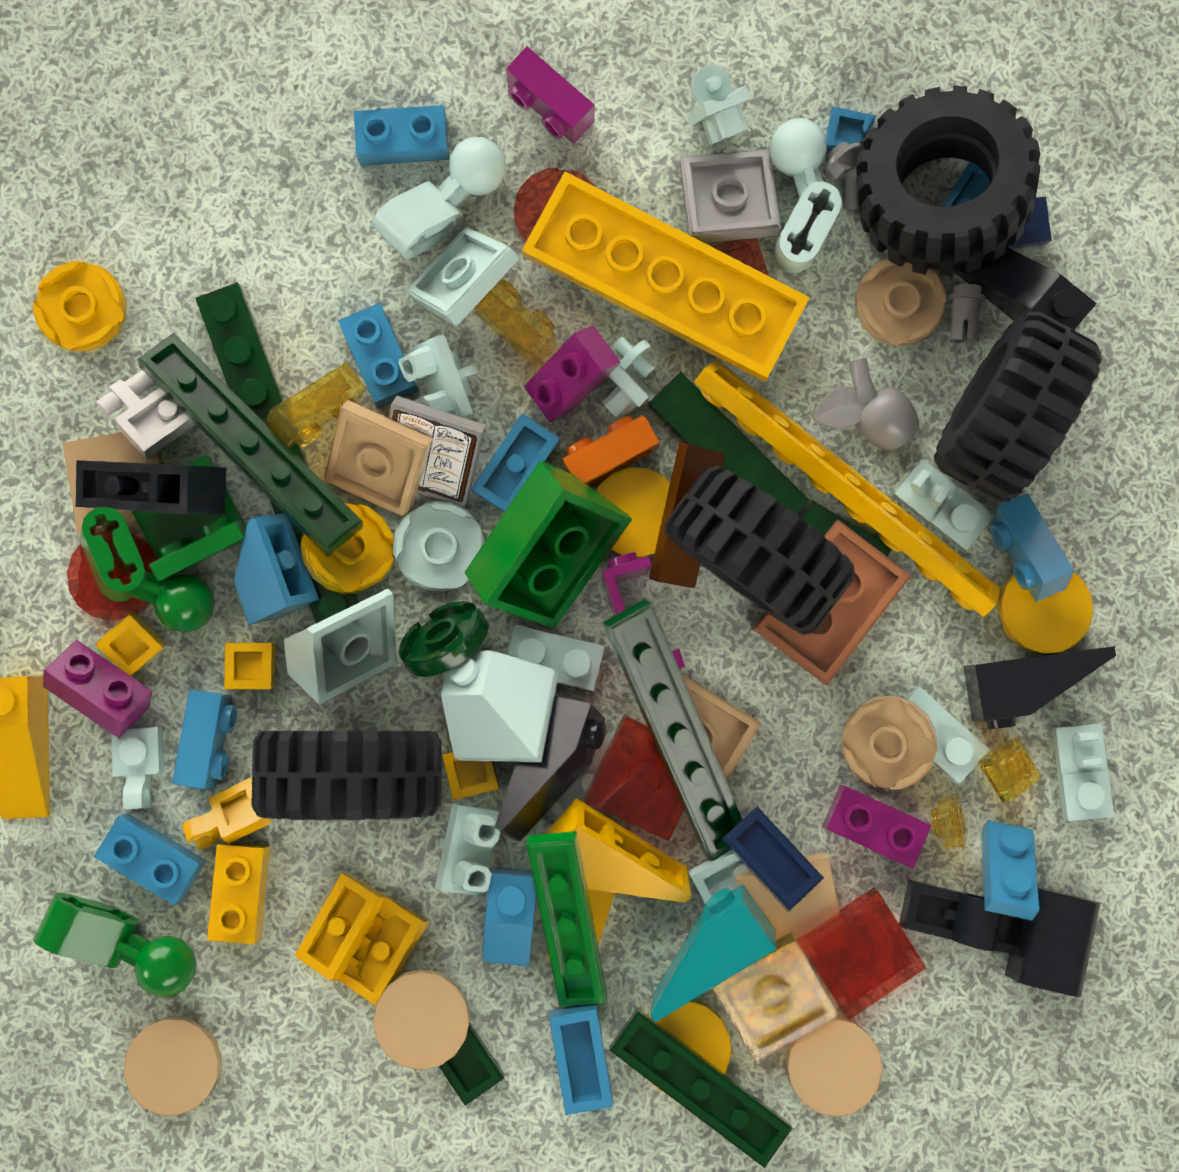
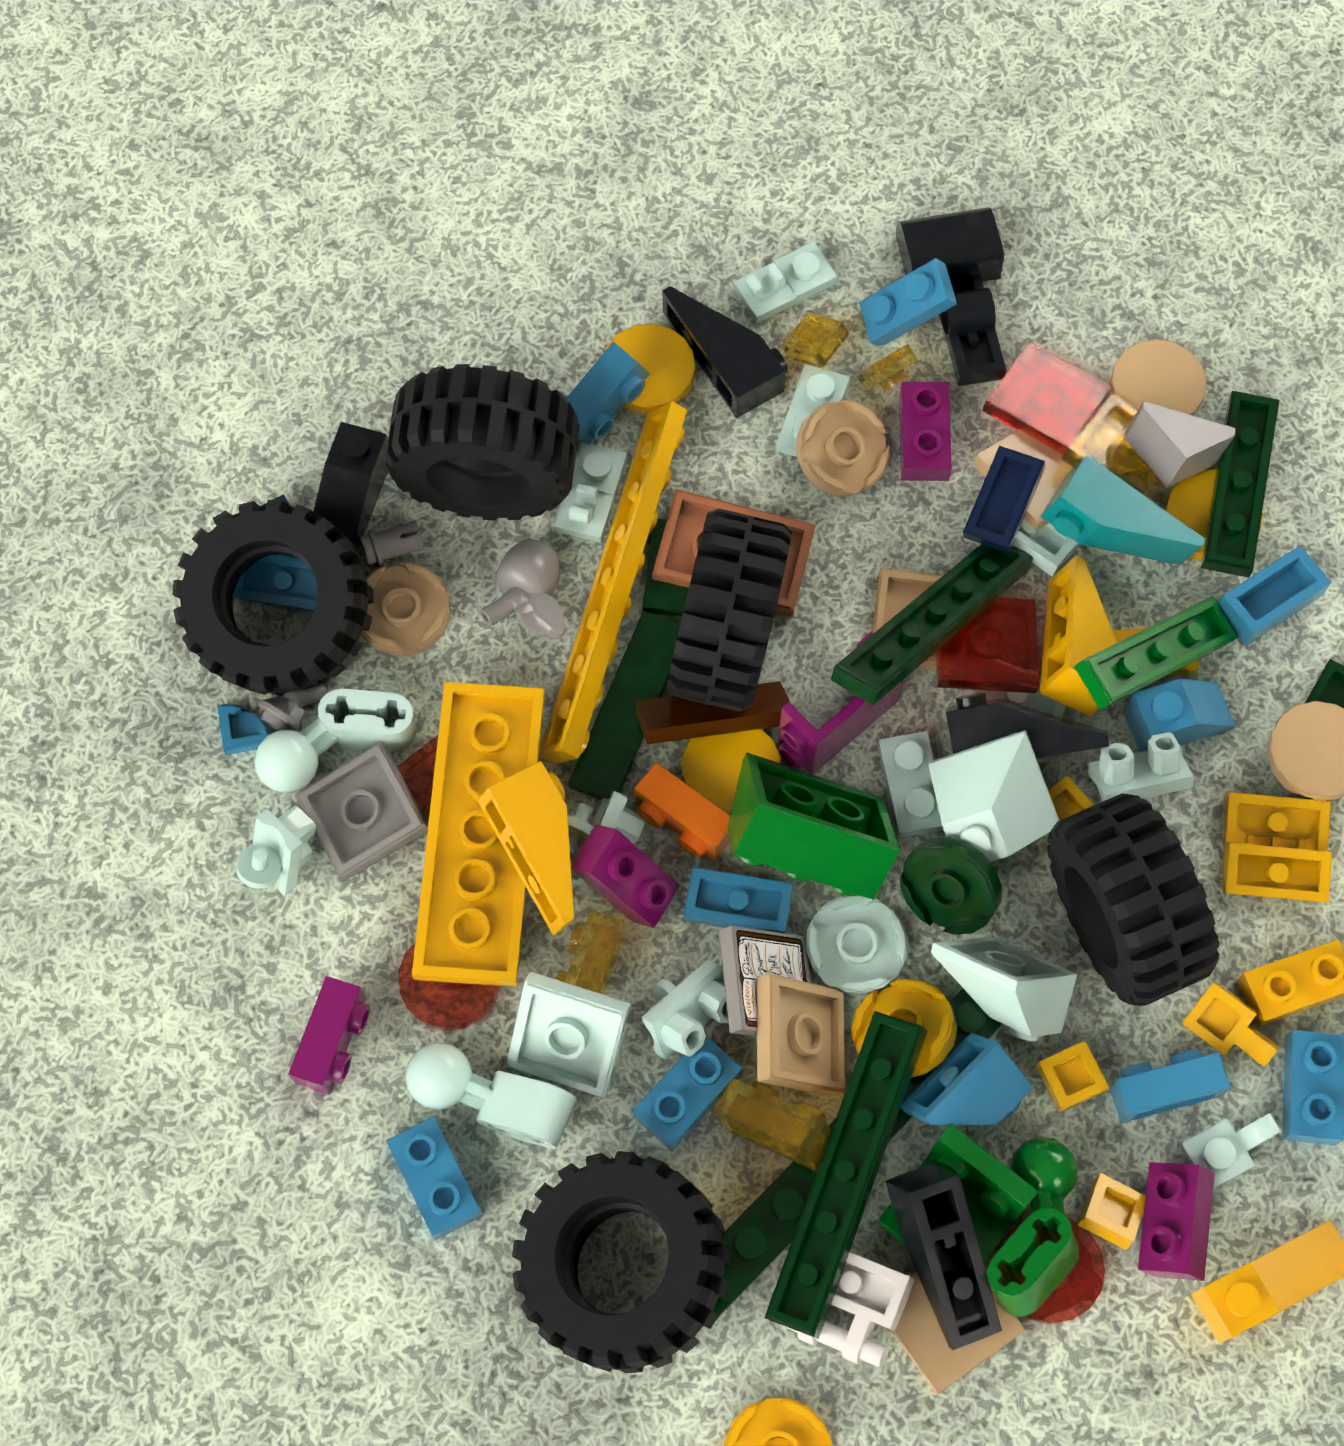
camera: 110 degrees left, 15 degrees down
(247, 184) = (553, 1249): none -> black tyre
(640, 309) = (533, 829): none -> yellow slope
(757, 1044) = (1176, 442): none -> light grey slope

